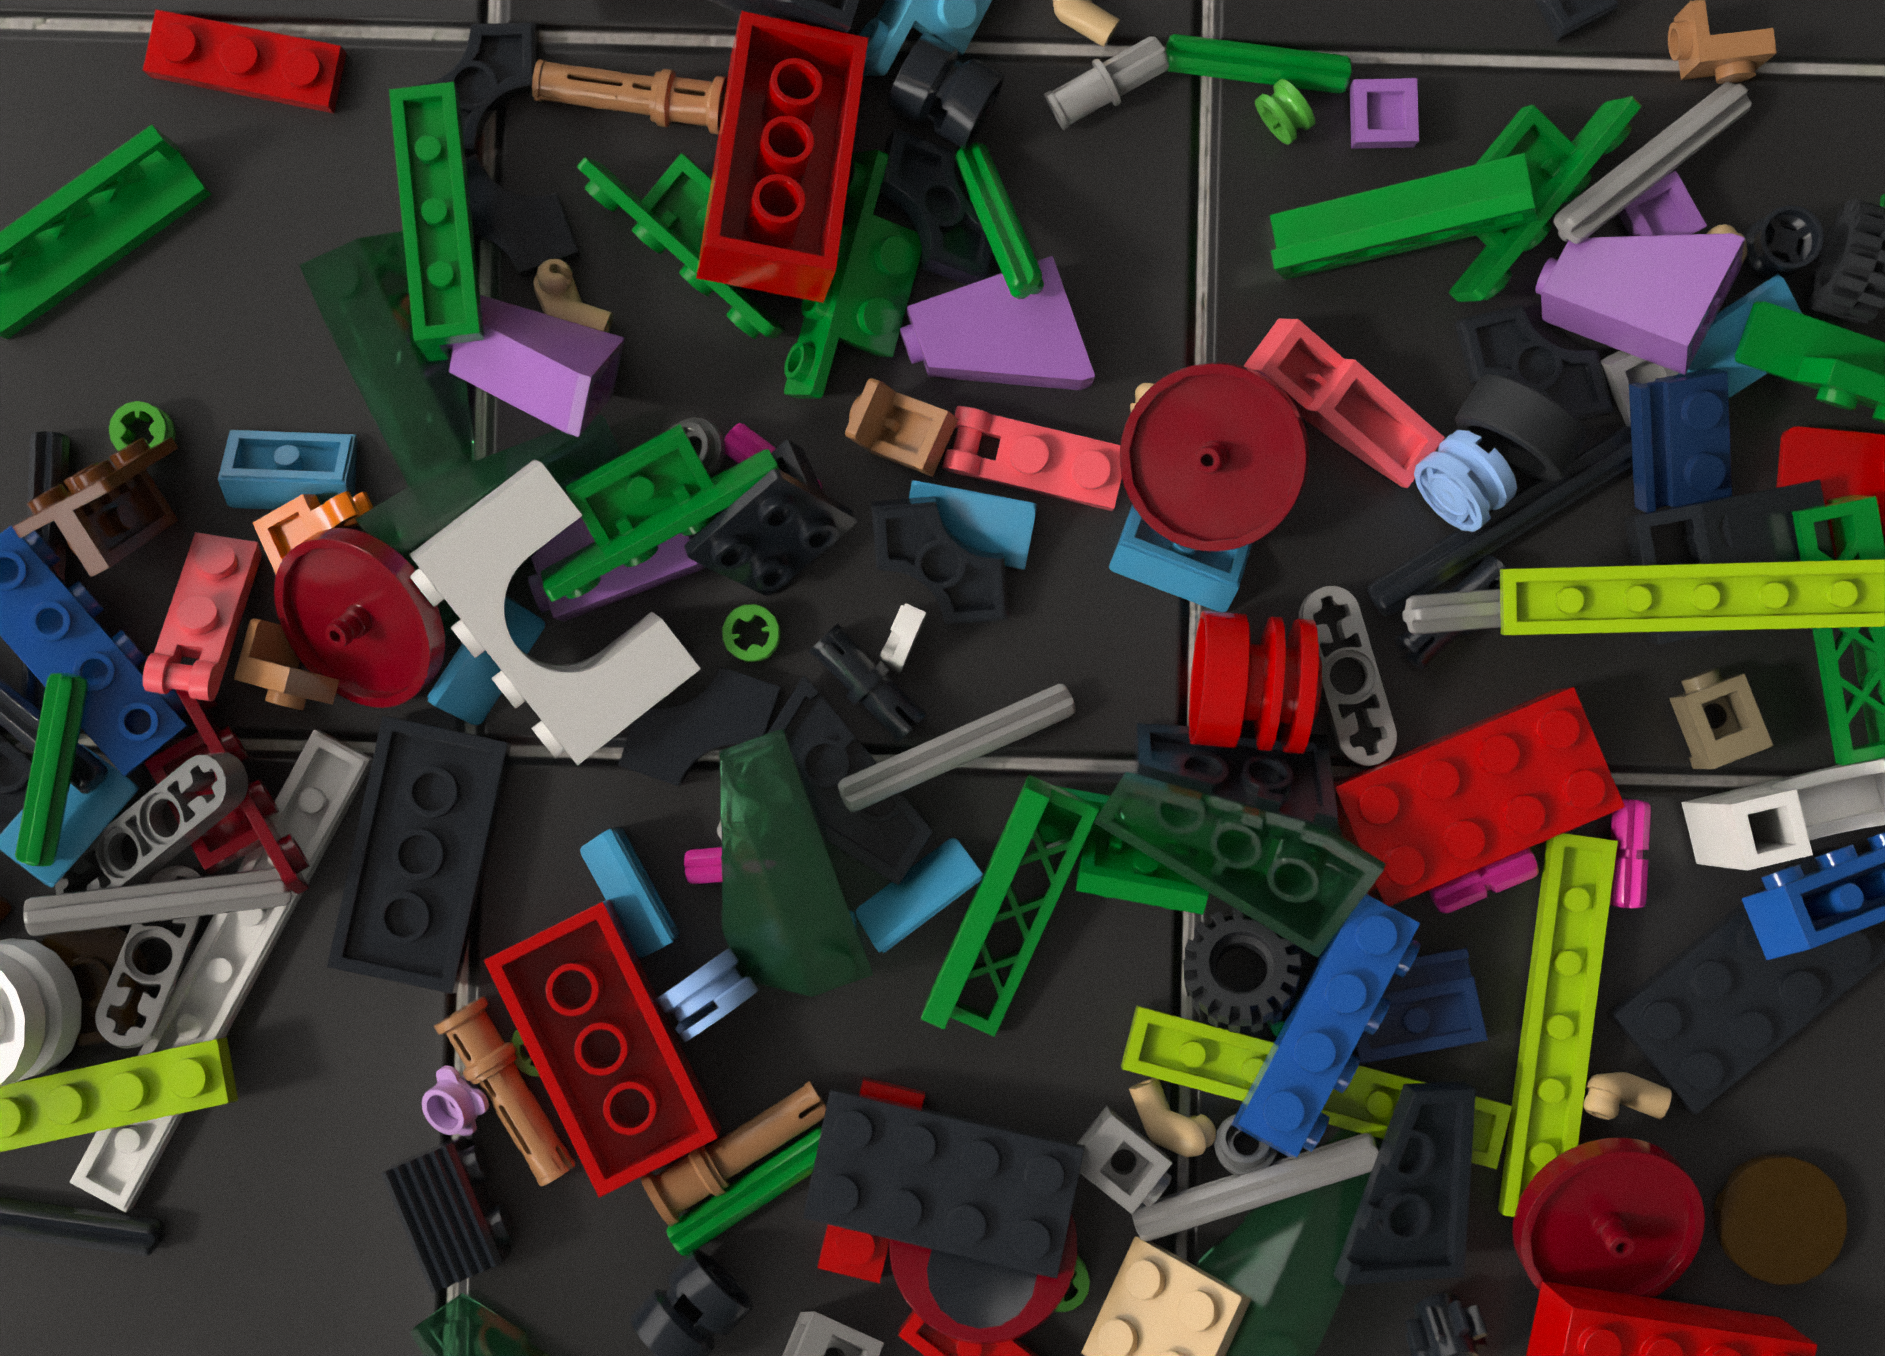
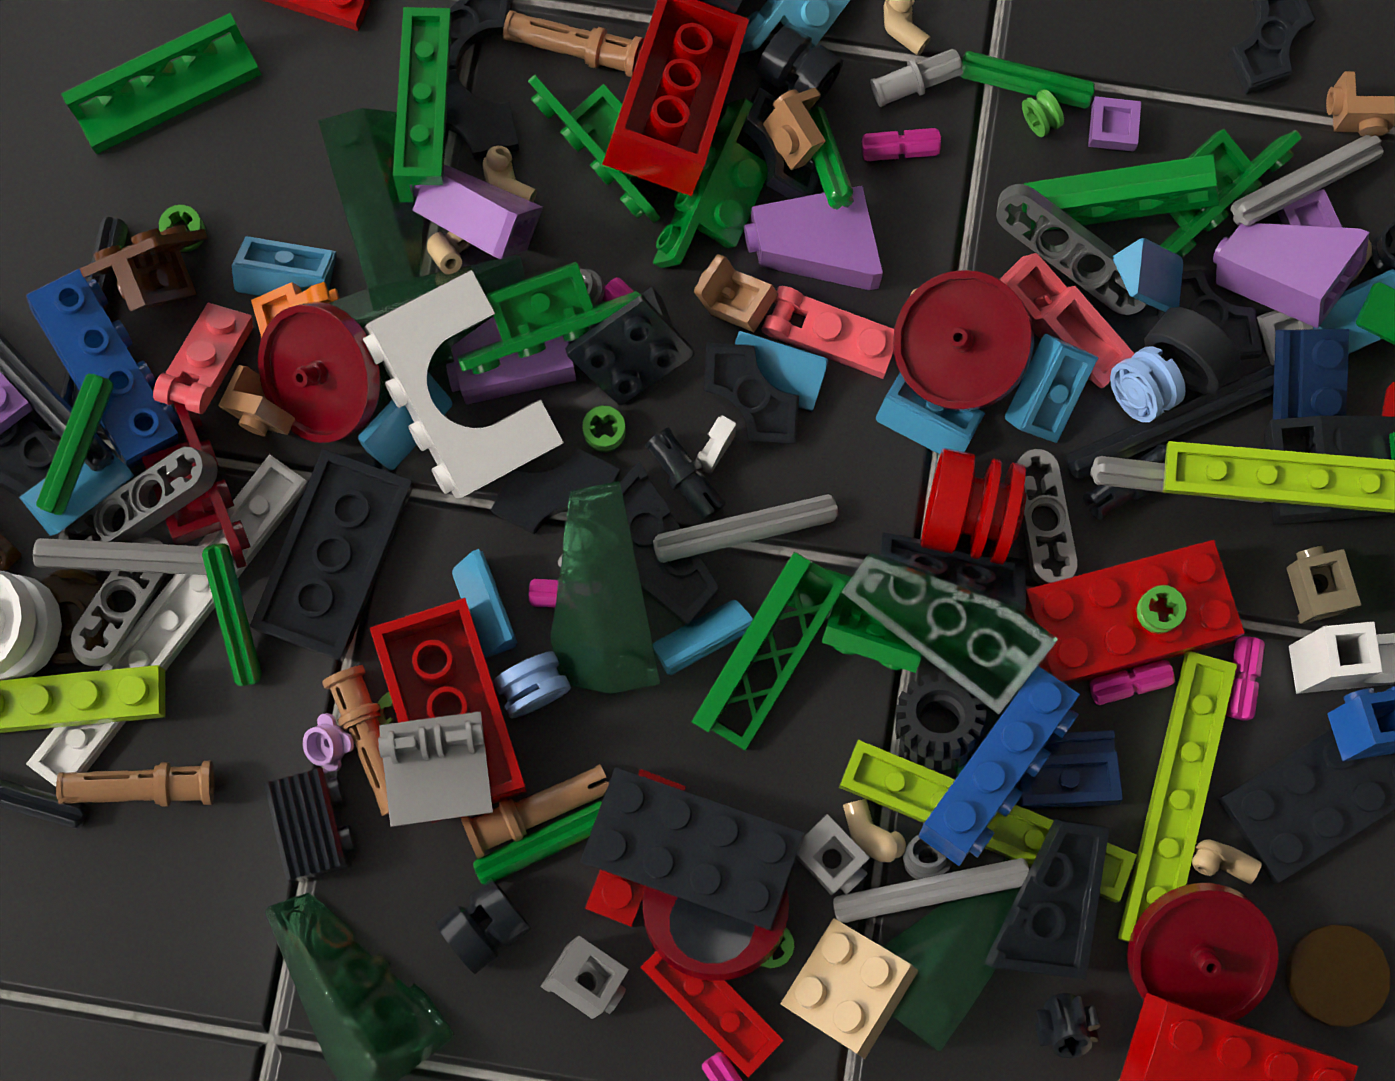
camera: 10 degrees right, 10 degrees down
(248, 1188) = (161, 784): none -> medium nougat pin
(300, 956) = (231, 614): none -> green axle
(502, 425) = (446, 250): none -> tan arm
(598, 1136) = (435, 769): none -> light grey hinge
(947, 187) = (793, 128): none -> medium nougat bracket
(1111, 178) = (911, 144): none -> dark pink piece
(1336, 501) = (1050, 388): none -> dark azure slope
(1340, 317) = (1067, 255): none -> dark grey beam
(1456, 336) = (1151, 273): none -> dark azure slope
(1526, 780) = (1172, 599): none -> bright green bush

